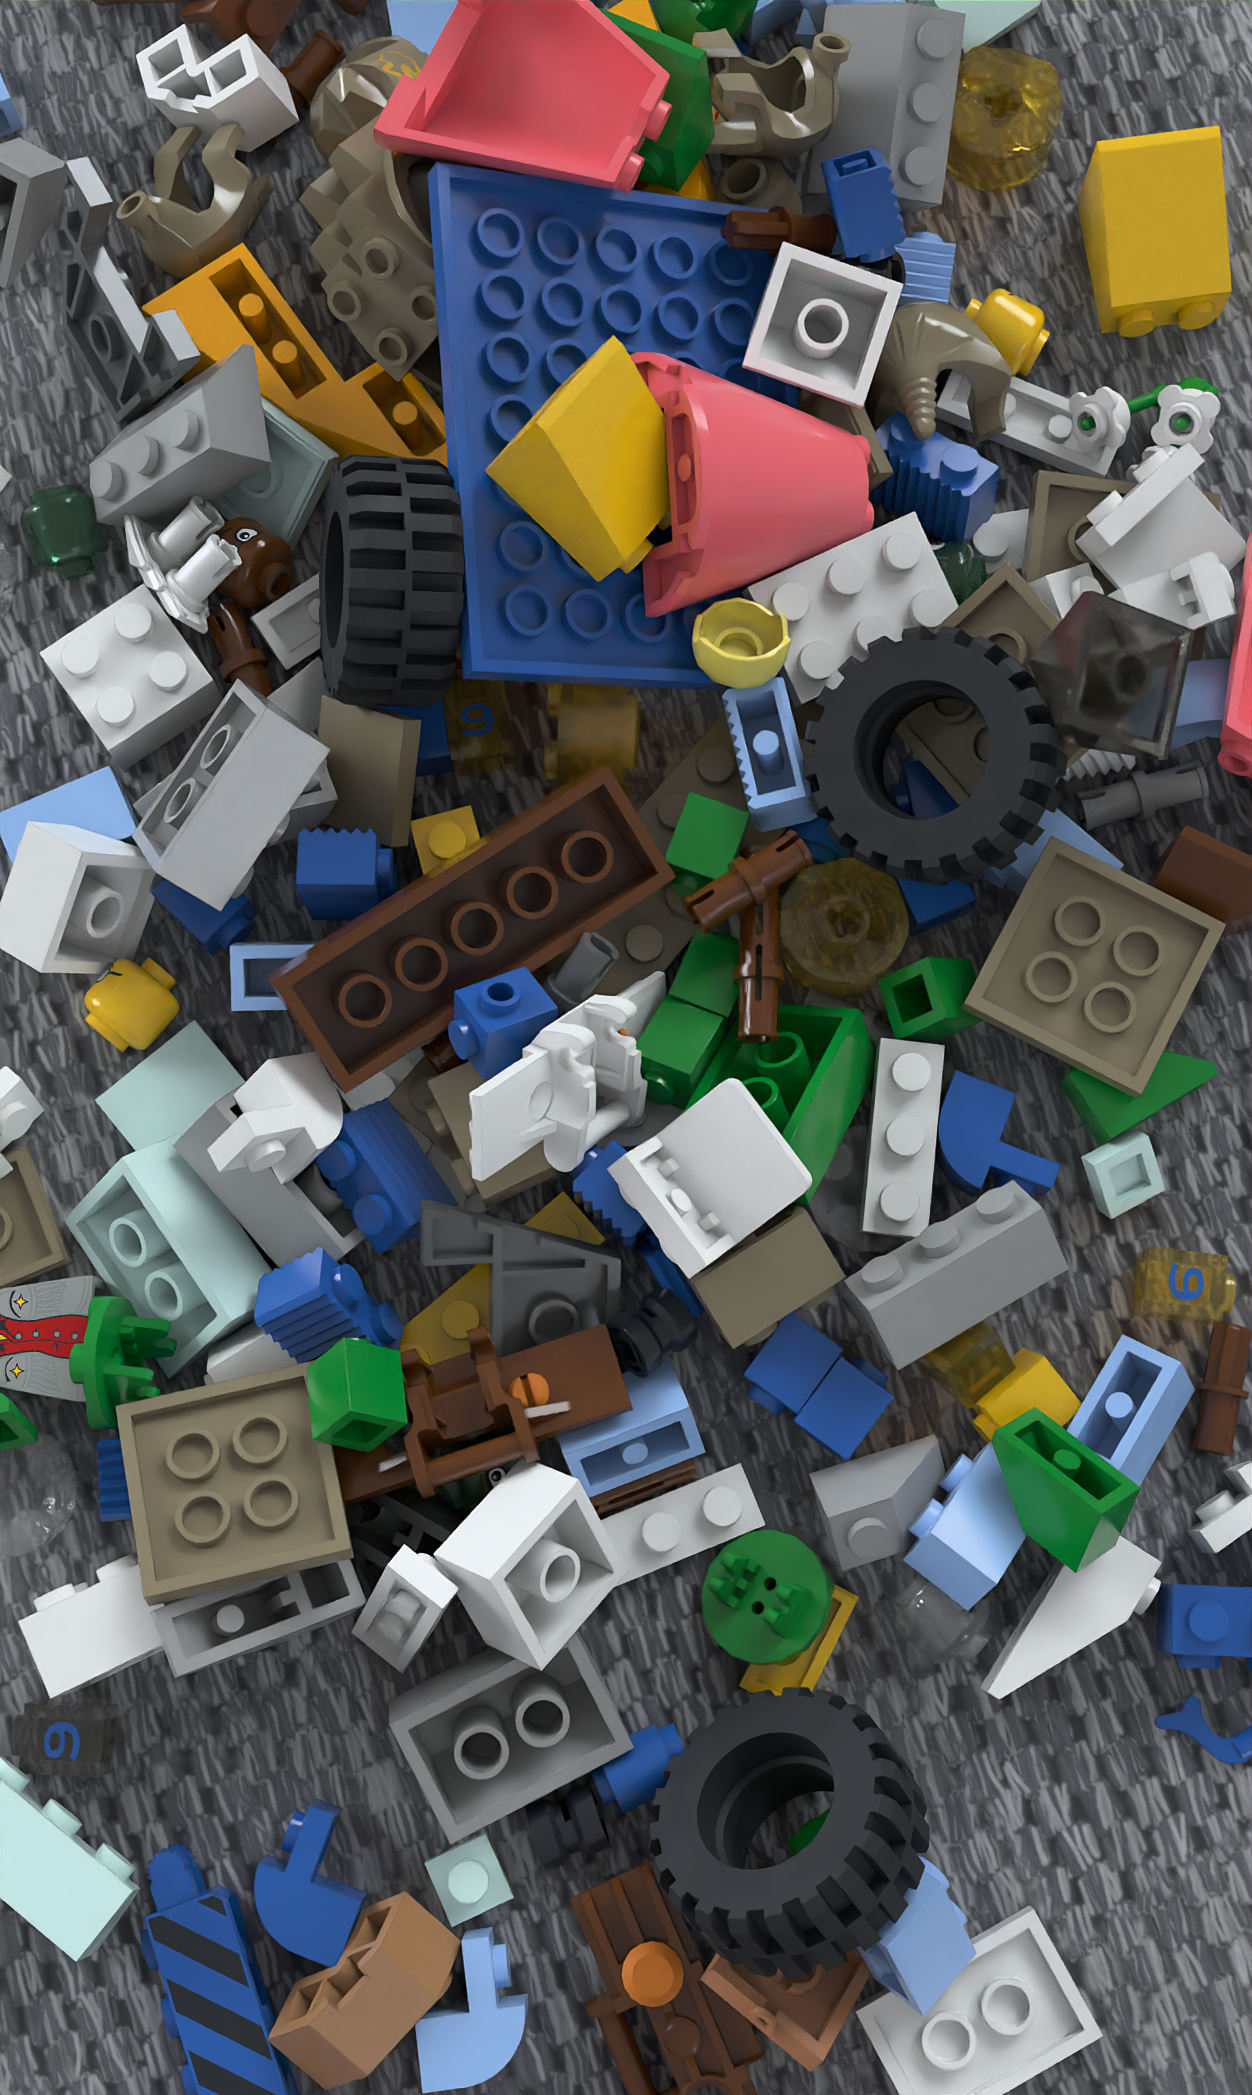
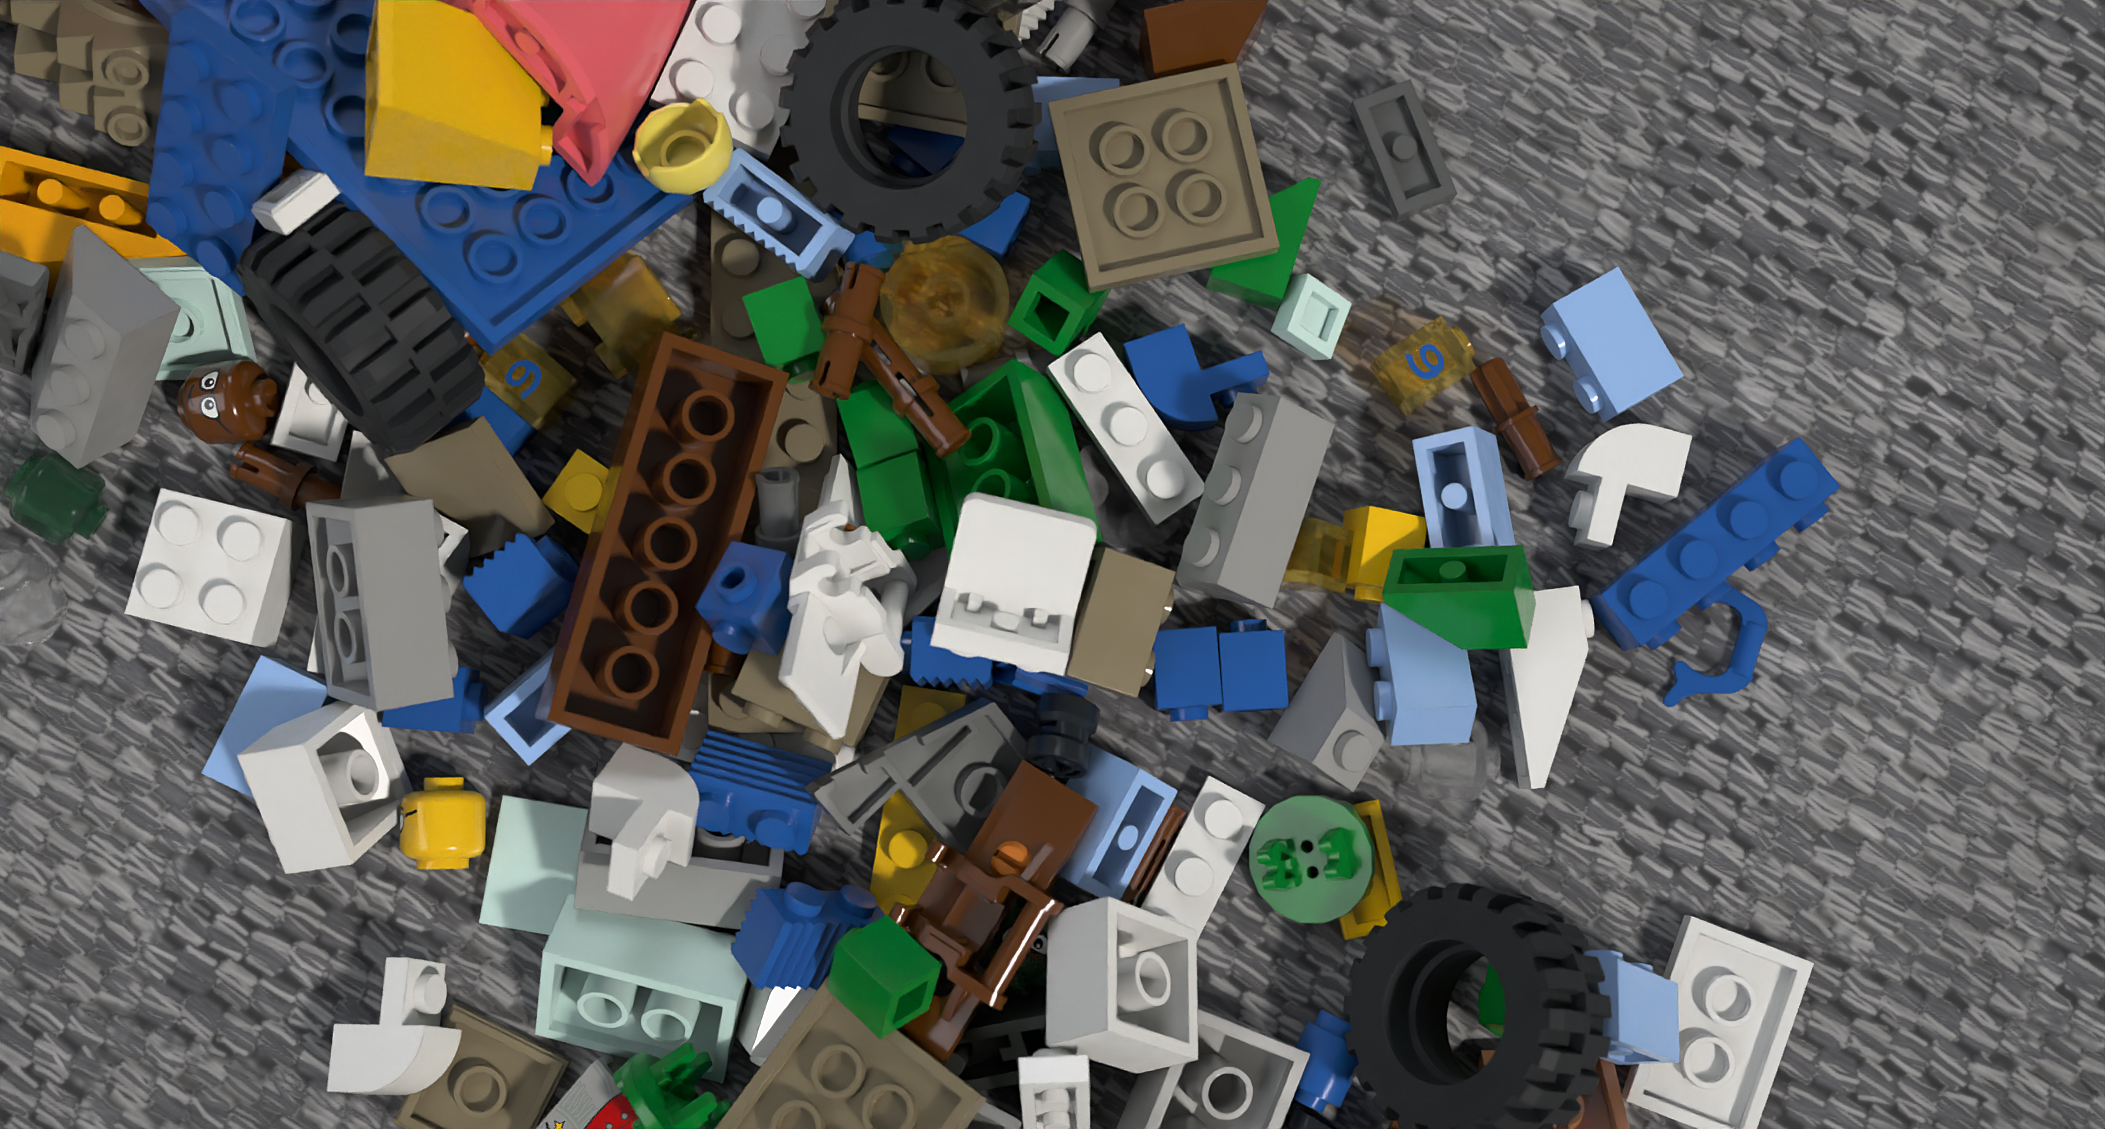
camera: 45 degrees left, 5 degrees up
(167, 565) = (171, 460): white connector -> none
(397, 363) = (216, 143): none -> blue plate
(417, 448) = (294, 200): none -> white tile

